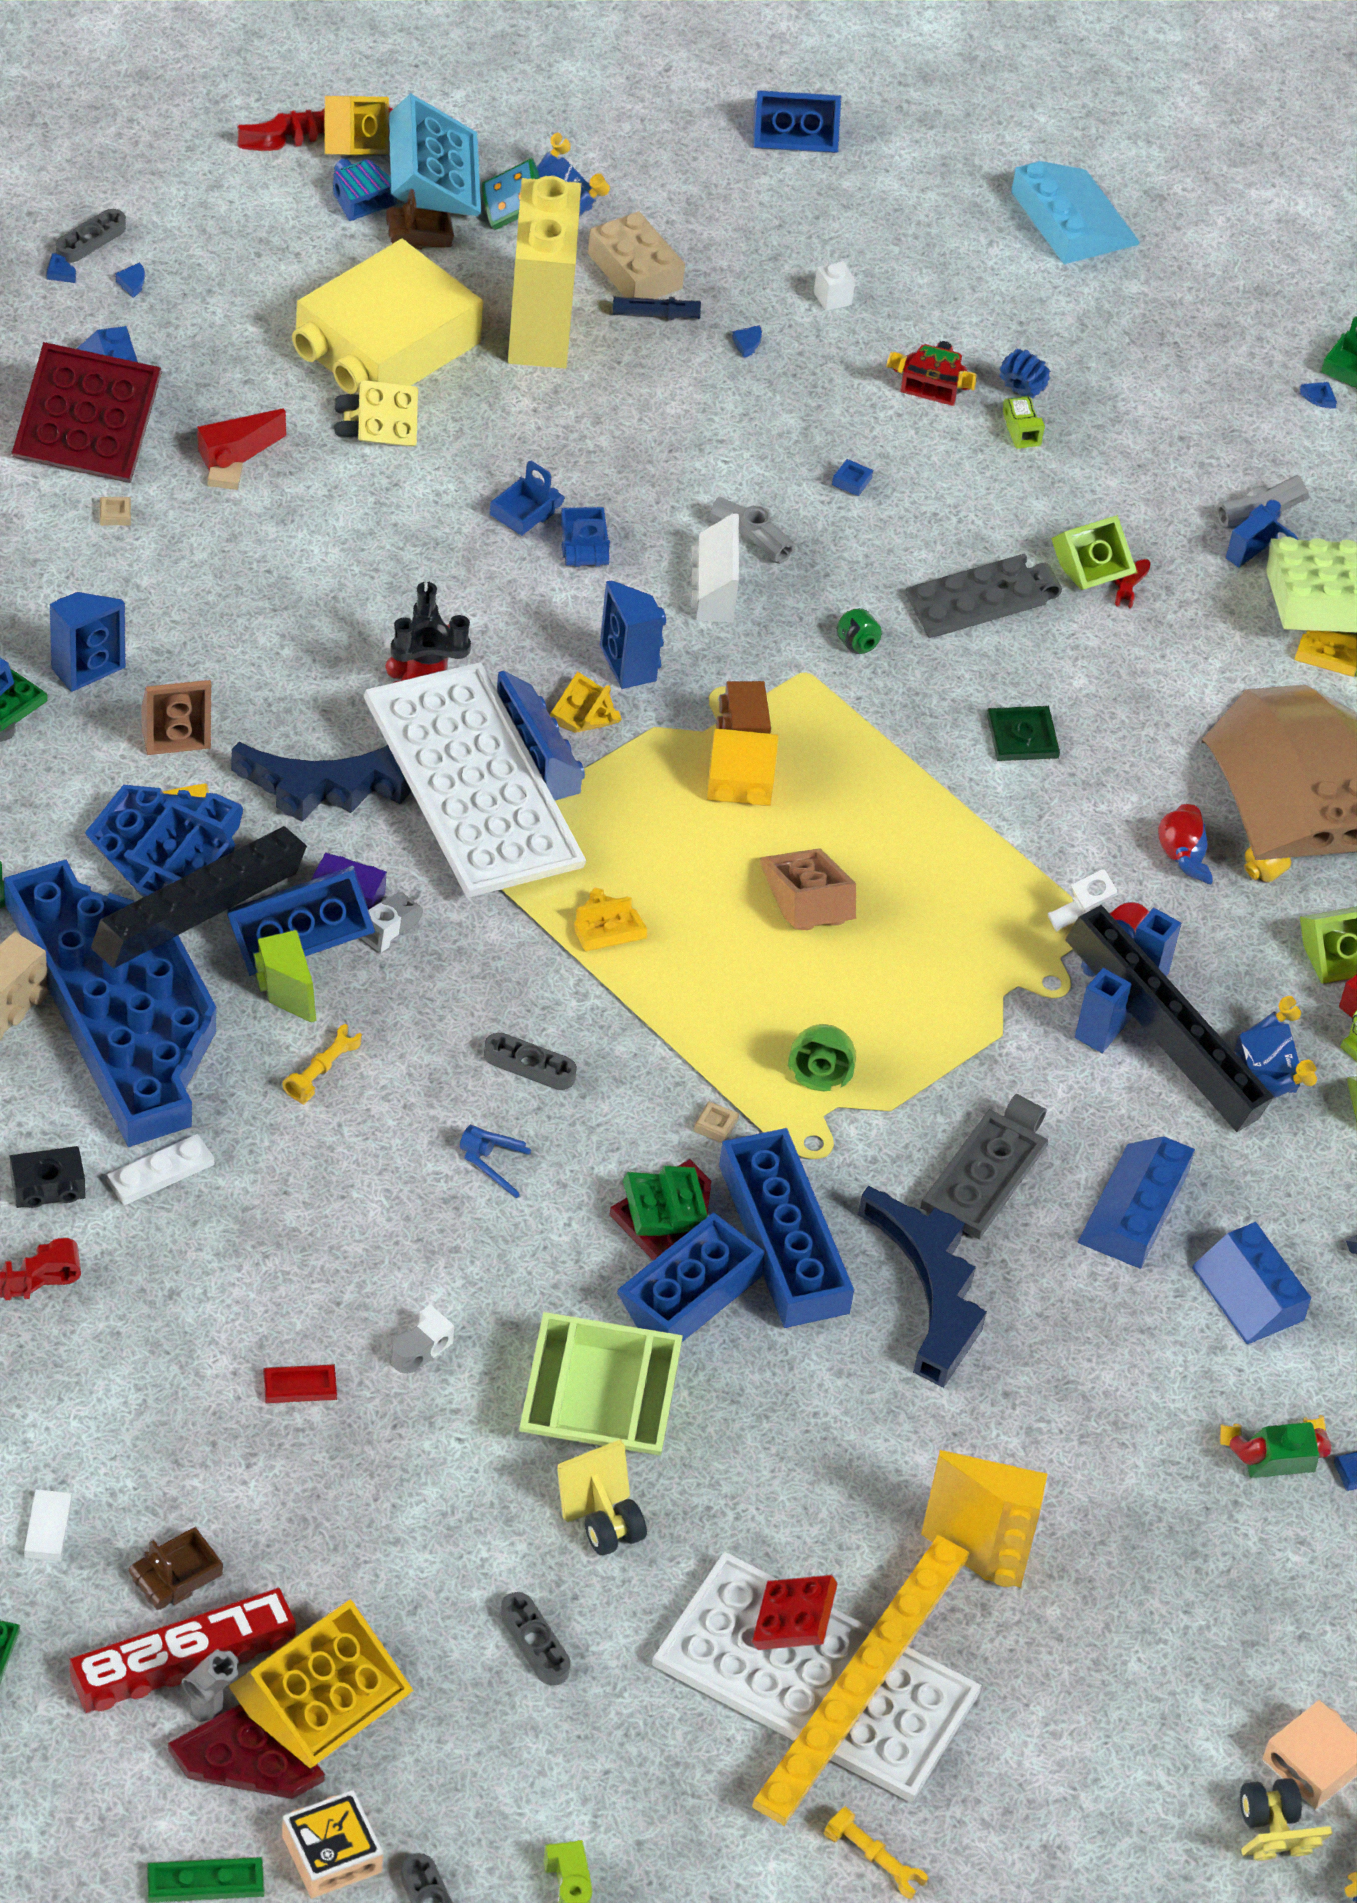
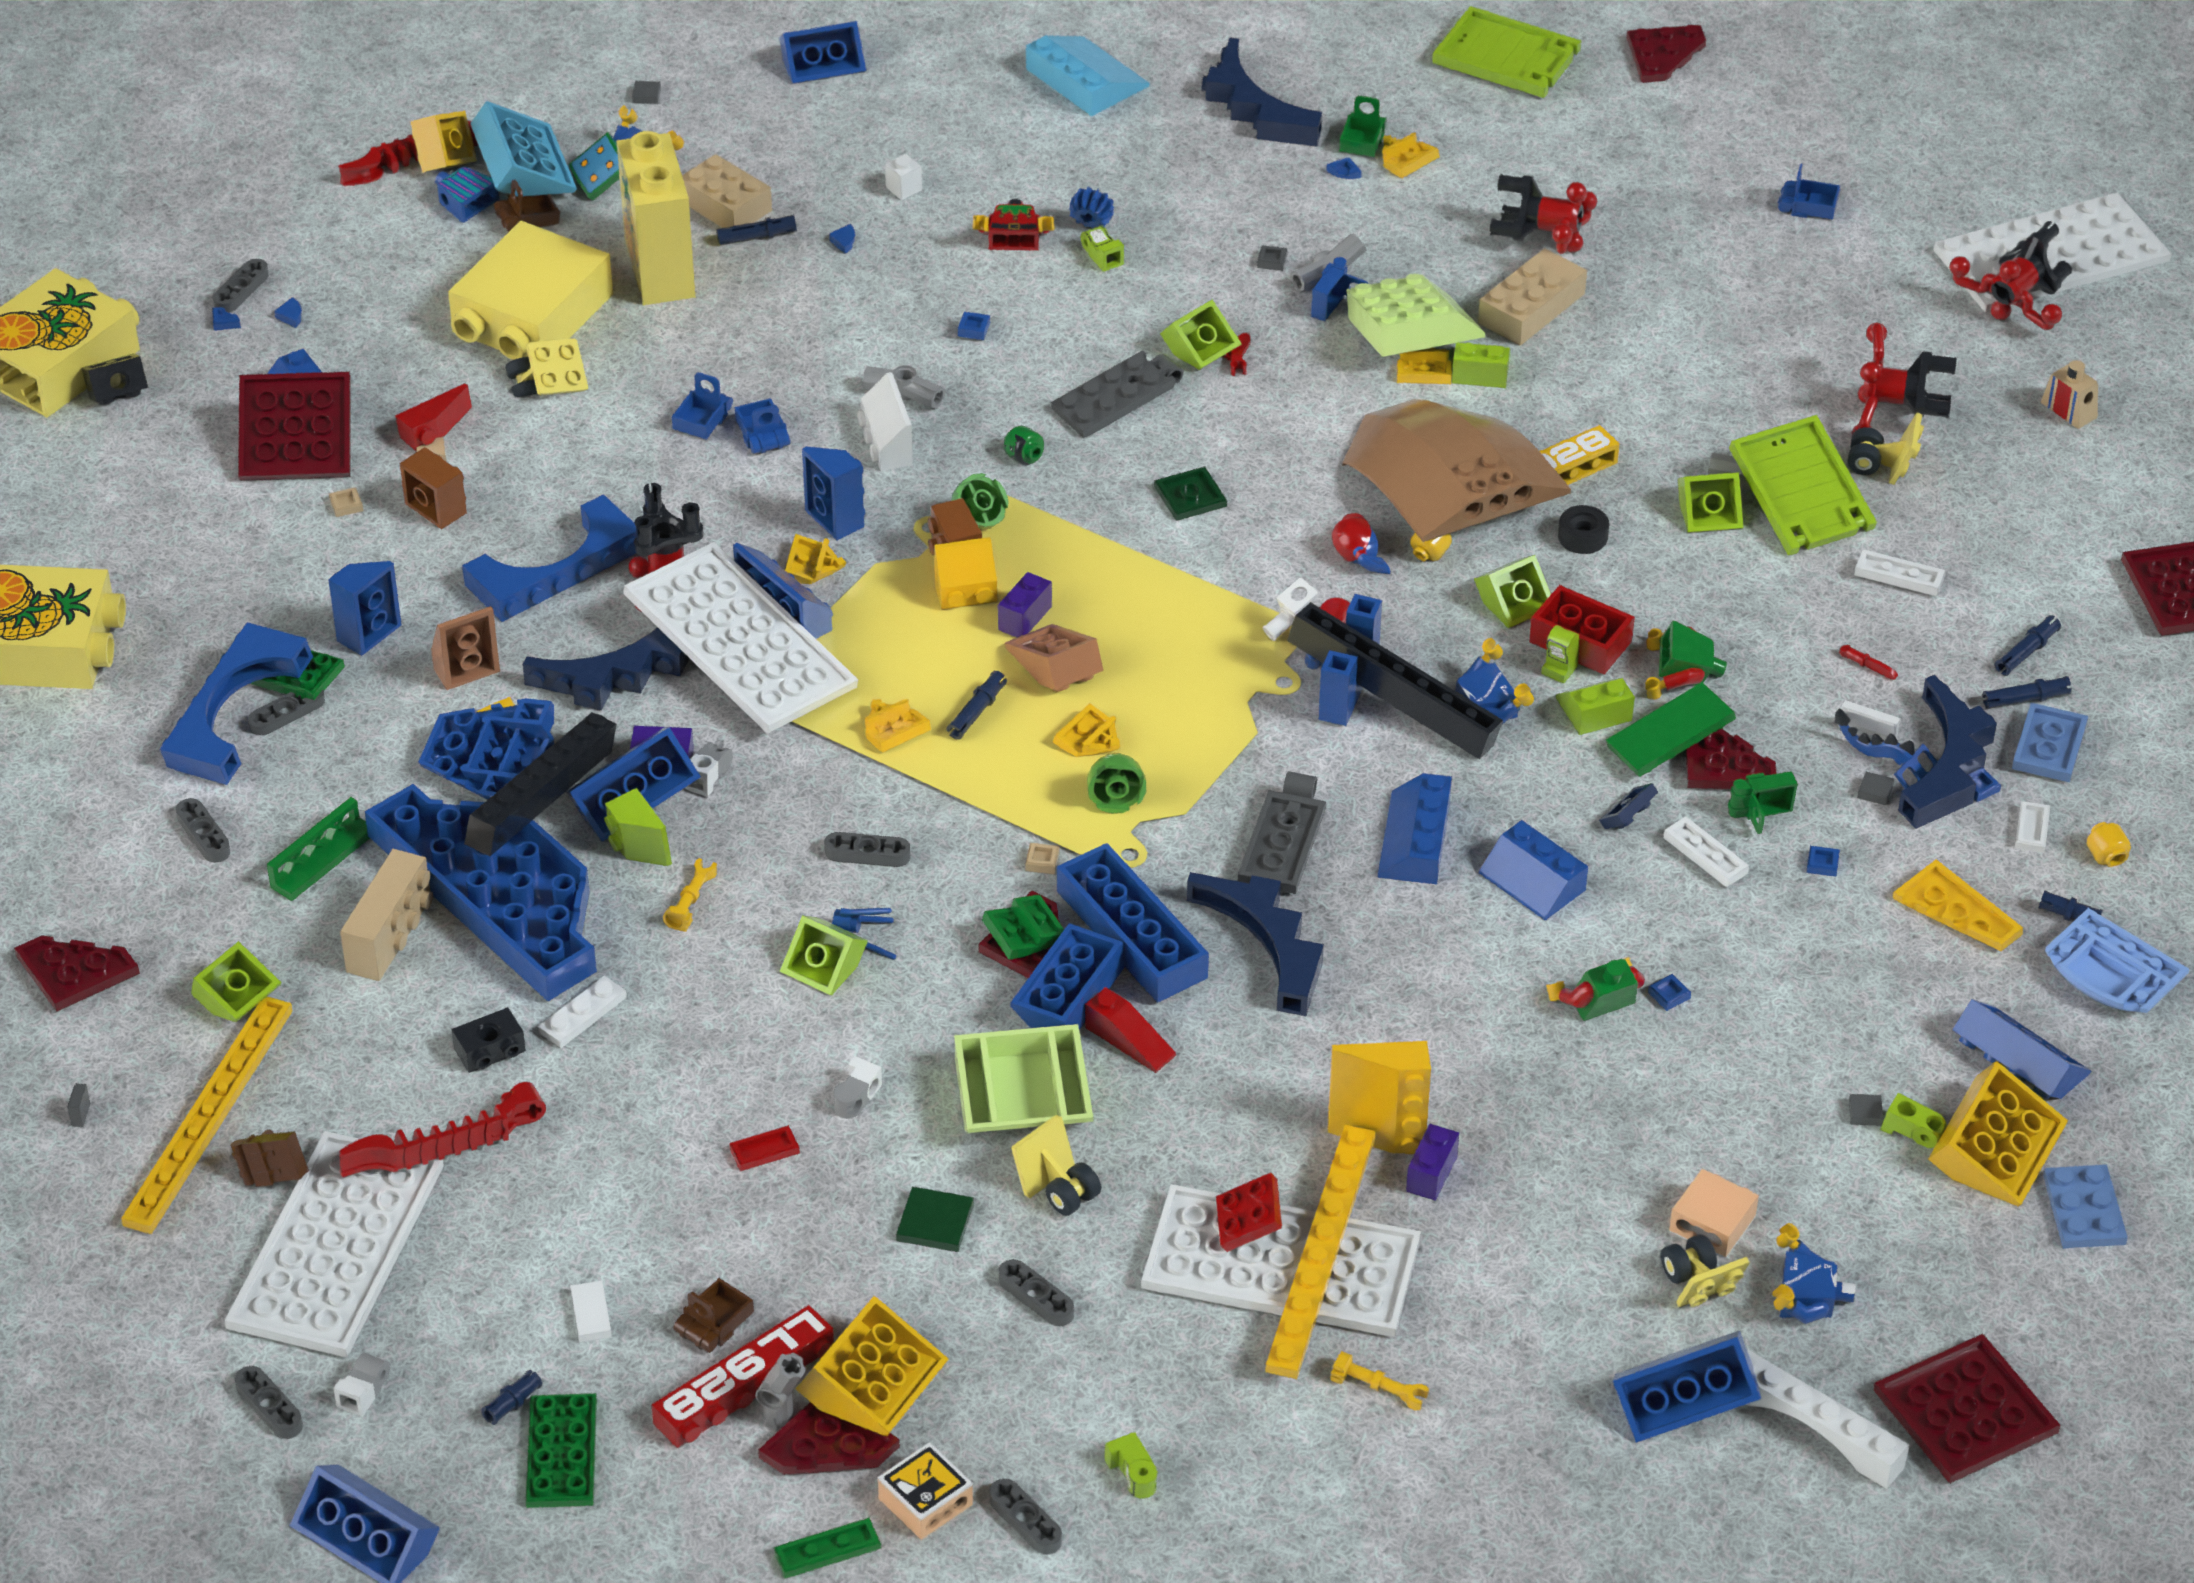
camera: 10 degrees left, 5 degrees down
(208, 520) = (433, 487): none -> dark orange brick
(257, 659) = (516, 589): none -> blue arch
(439, 1172) = (822, 954): none -> lime slope
(455, 1519) = (935, 1219): none -> dark green tile
(594, 120) = (646, 92): none -> dark grey tile
(714, 915) = (982, 697): none -> dark blue pin
(738, 1353) = (1126, 1029): none -> red slope
(789, 686) = (984, 498): none -> bright green cylinder
(795, 820) = (1025, 605): none -> dark purple brick
(815, 988) = (1088, 733): none -> yellow slope
(1022, 1605) = (1432, 1162): none -> dark purple brick
(1205, 479) = (1272, 258): none -> dark grey tile
(1237, 291) = (1249, 103): none -> dark blue arch

